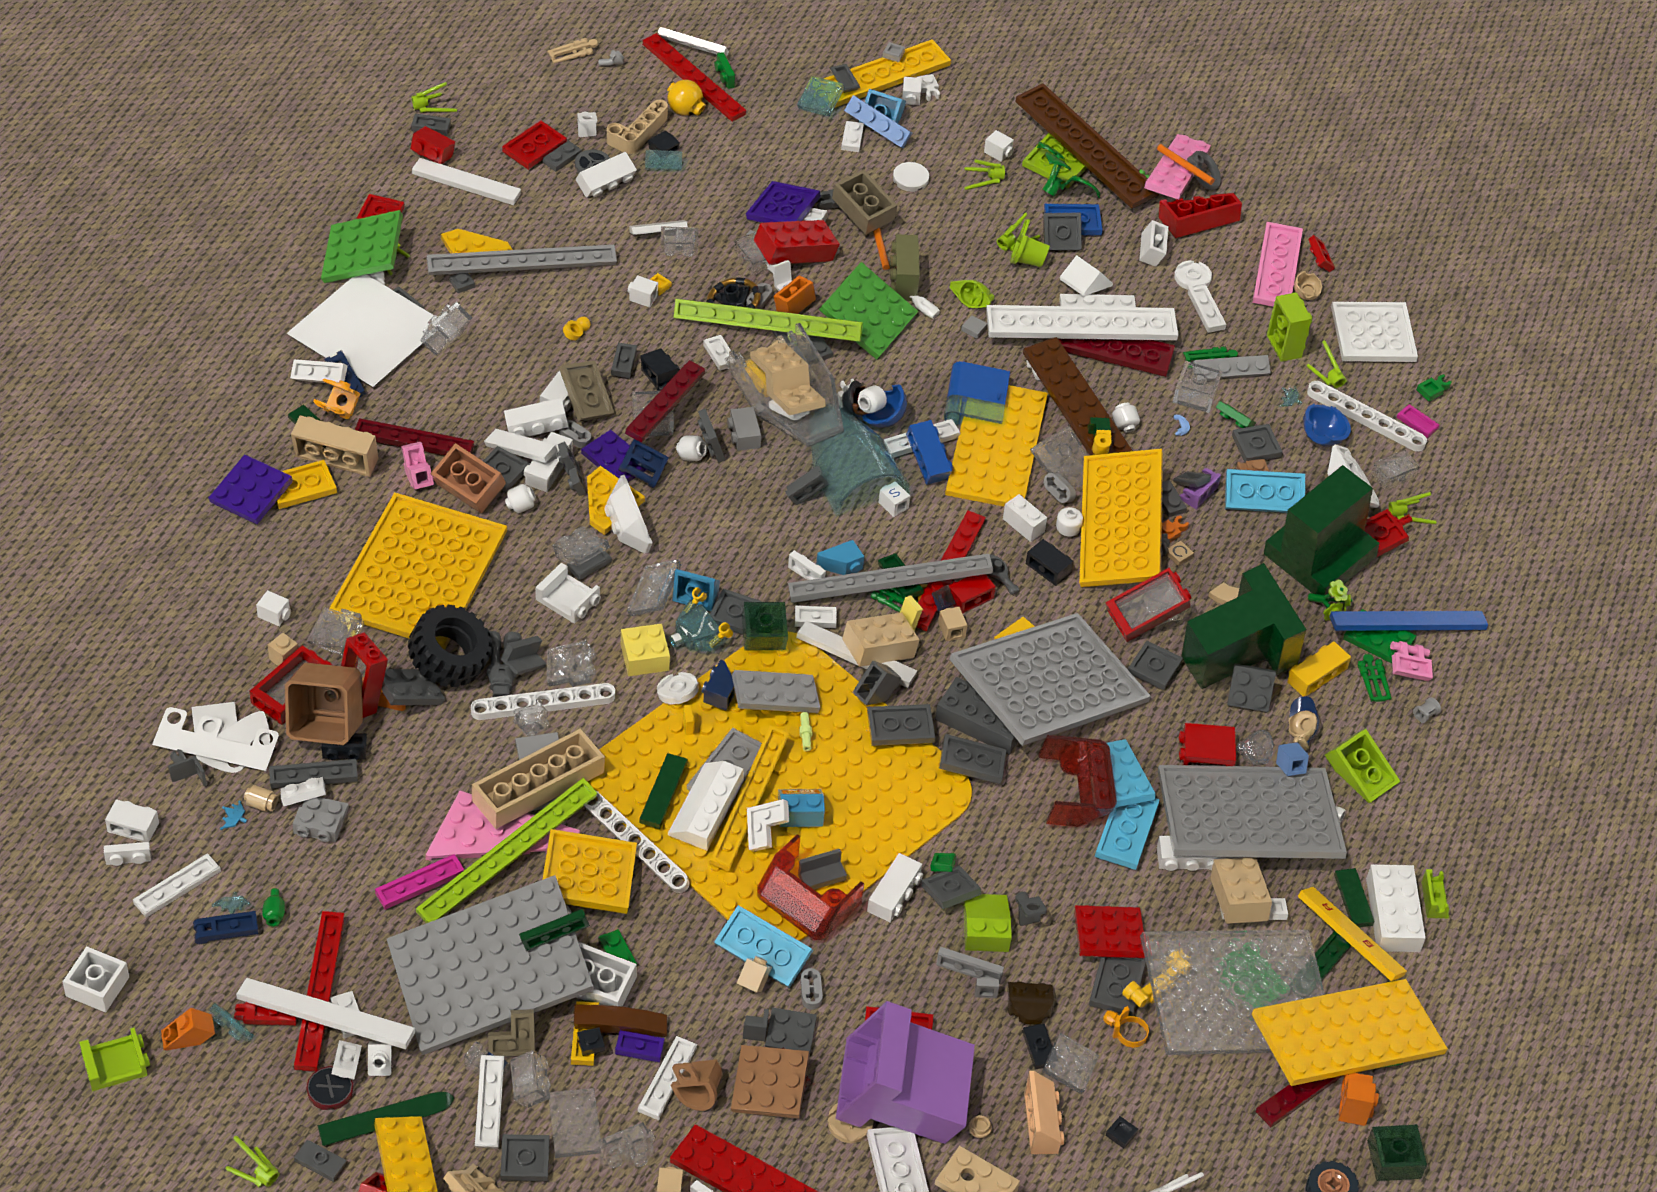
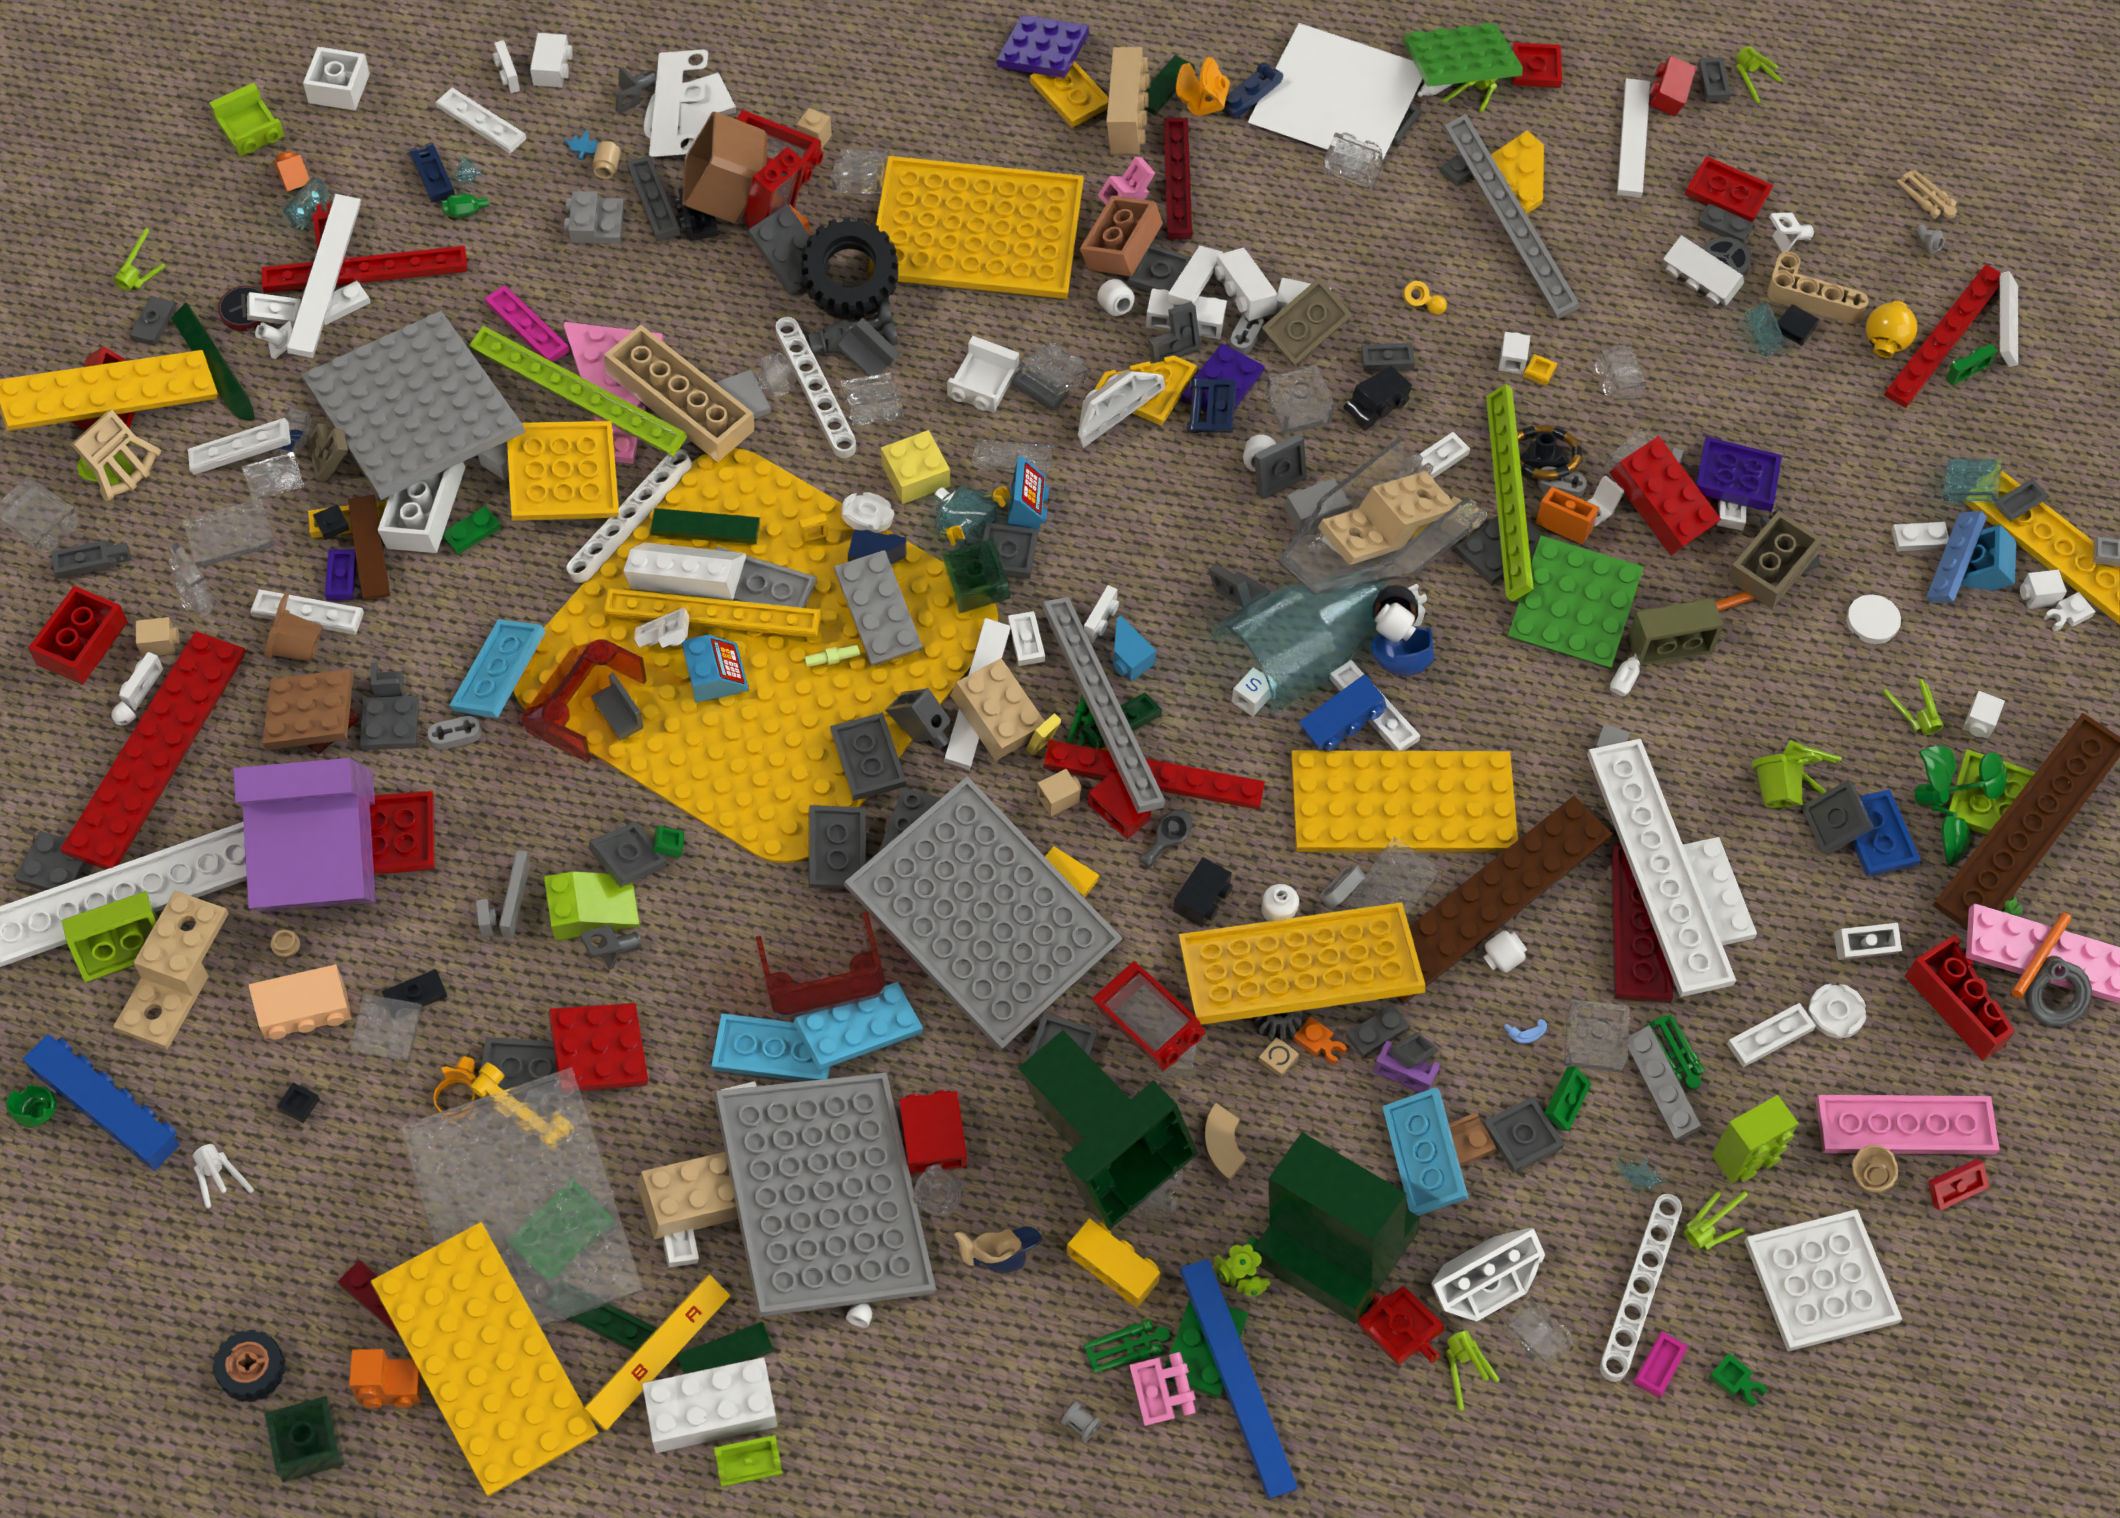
camera: 80 degrees right, 10 degrees up
(273, 608) = (875, 107): white brick -> none
(303, 791) = (623, 192): white plate -> none
(317, 371) = (1241, 62): white plate -> none
(525, 1157) = (177, 496): dark grey plate -> none
(554, 929) = (436, 434): dark green tile -> none
(655, 227) = (1645, 357): white tile -> none
(665, 401) = (1309, 399): dark red plate -> none
(754, 974) = (452, 665): tan brick -> none
(895, 888) = (616, 794): white brick -> none
(943, 598) = (1093, 771): clear smoke tile -> none
(972, 293) = (1671, 727): lime hat -> none
(976, 393) = (1477, 758): blue door -> none
(1024, 518) = (1269, 849): white brick -> none
(1030, 1001) = (476, 971): dark brown slope -> none
(1084, 277) = (1761, 863): white slope -> none
(1102, 434) = (1441, 916): leg -> none
(1251, 687) = (1043, 1170): dark grey plate -> none
(1292, 759) = (928, 1236): medium blue brick -> none
(1325, 425) = (1585, 1219): blue cylinder -> none
(1363, 766) = (951, 1340): lime slope -> none

